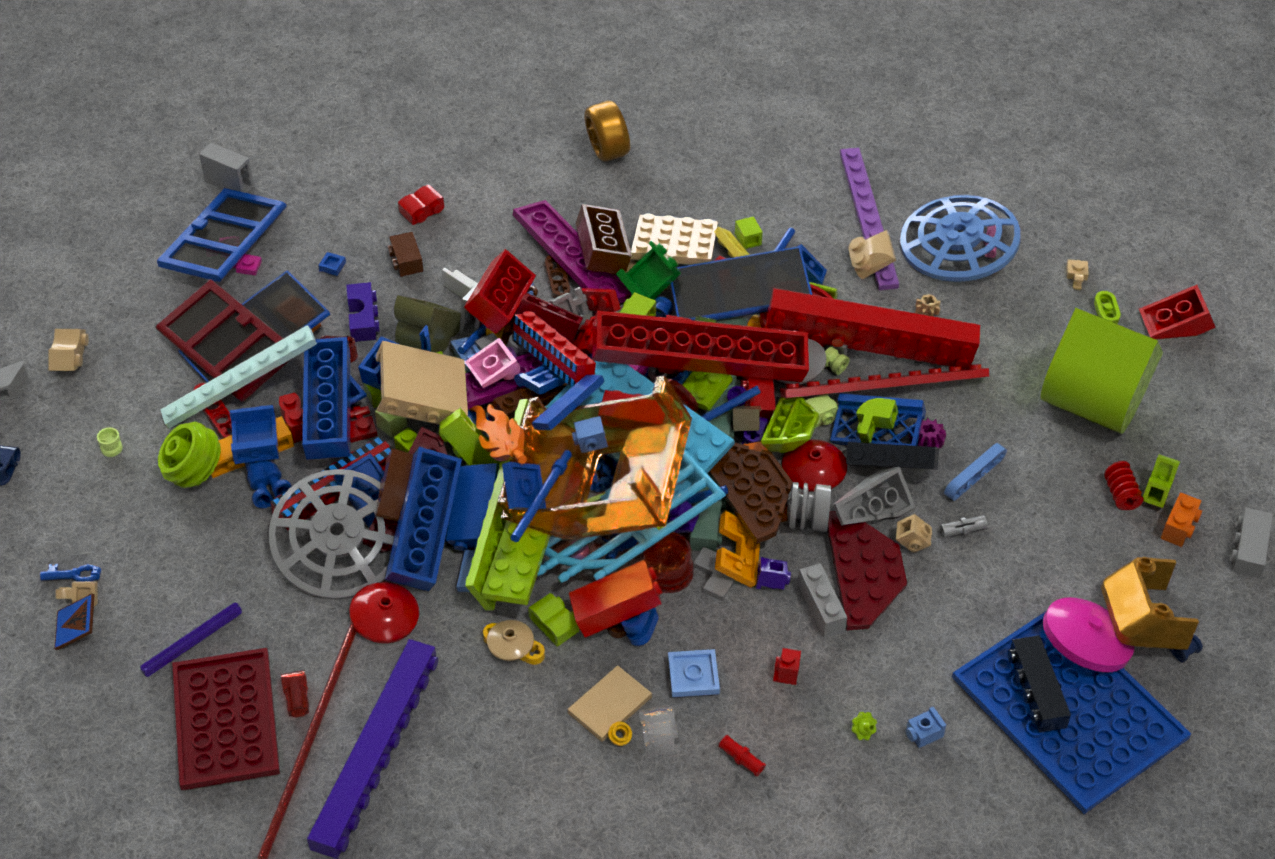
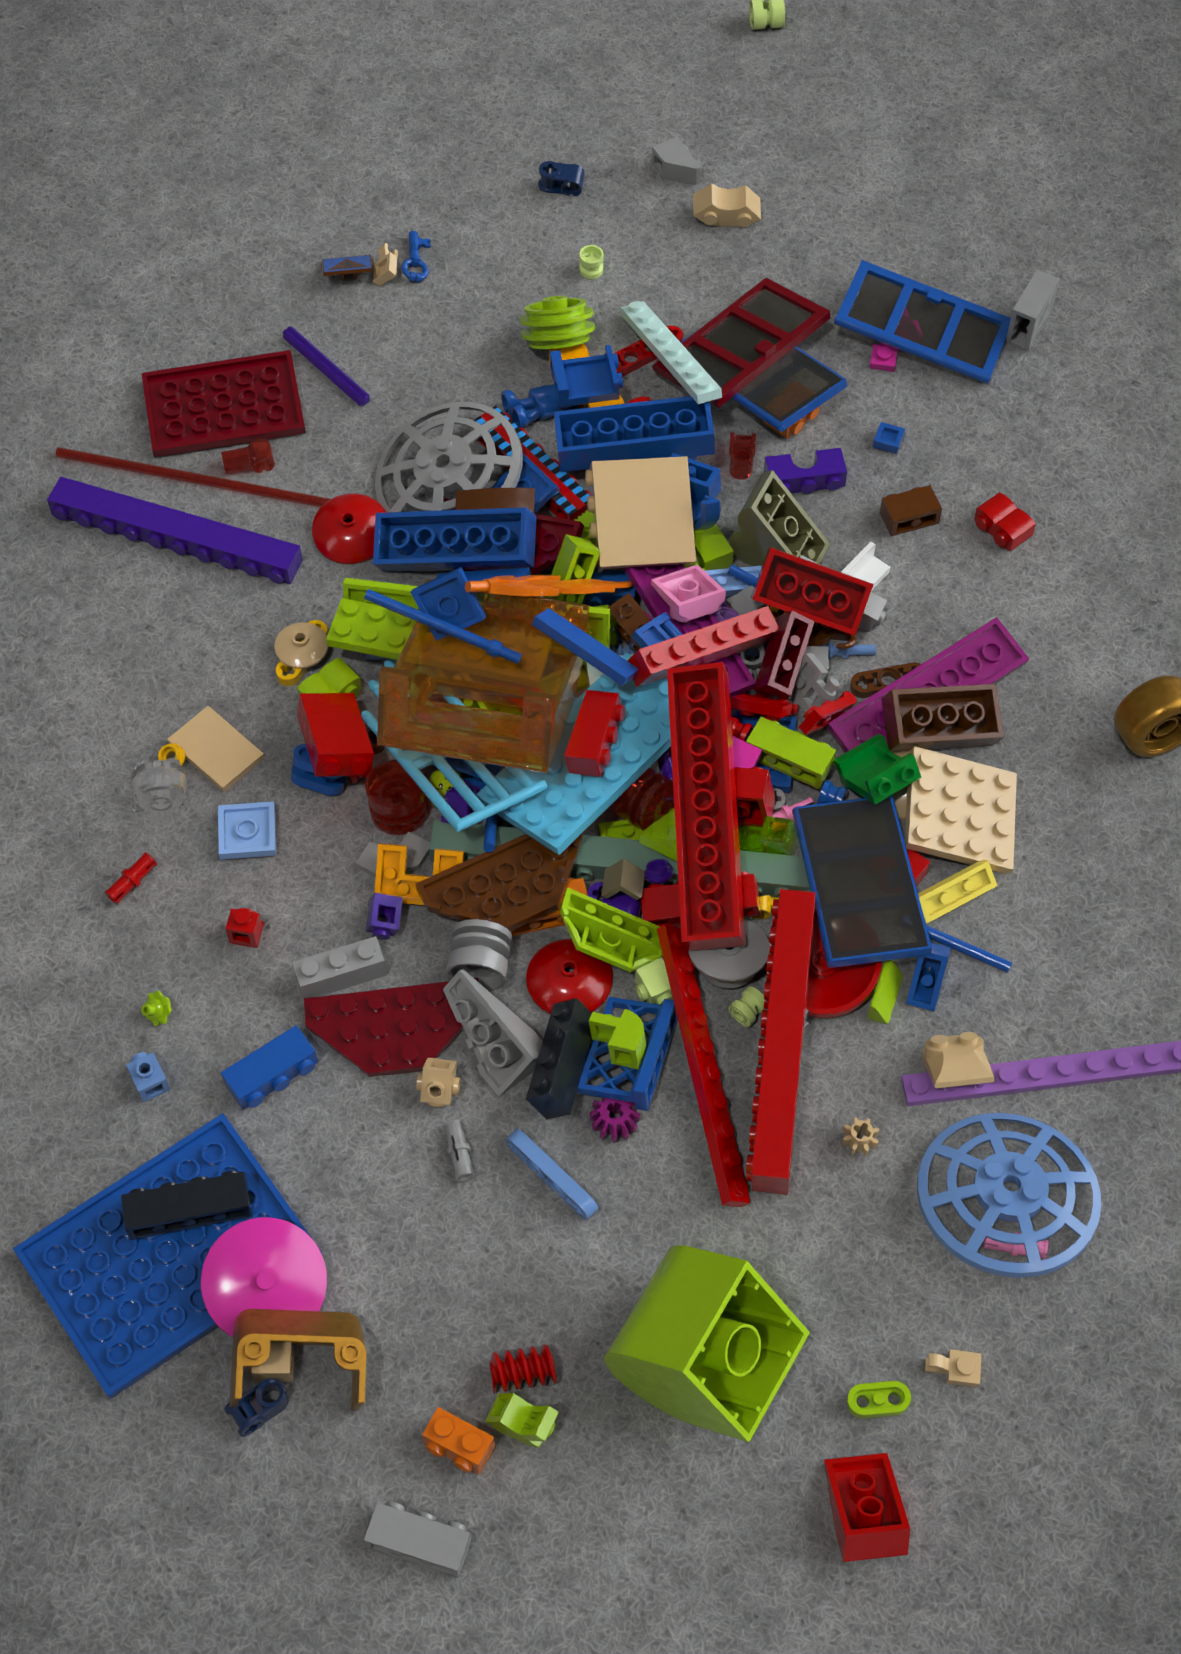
camera: 90 degrees right, 10 degrees up
(589, 434) = (538, 673): medium blue brick -> none
(731, 403) = (632, 851): blue bar -> none
(748, 232) = (988, 903): lime panel -> none
(910, 644) = (270, 1068): none -> blue brick

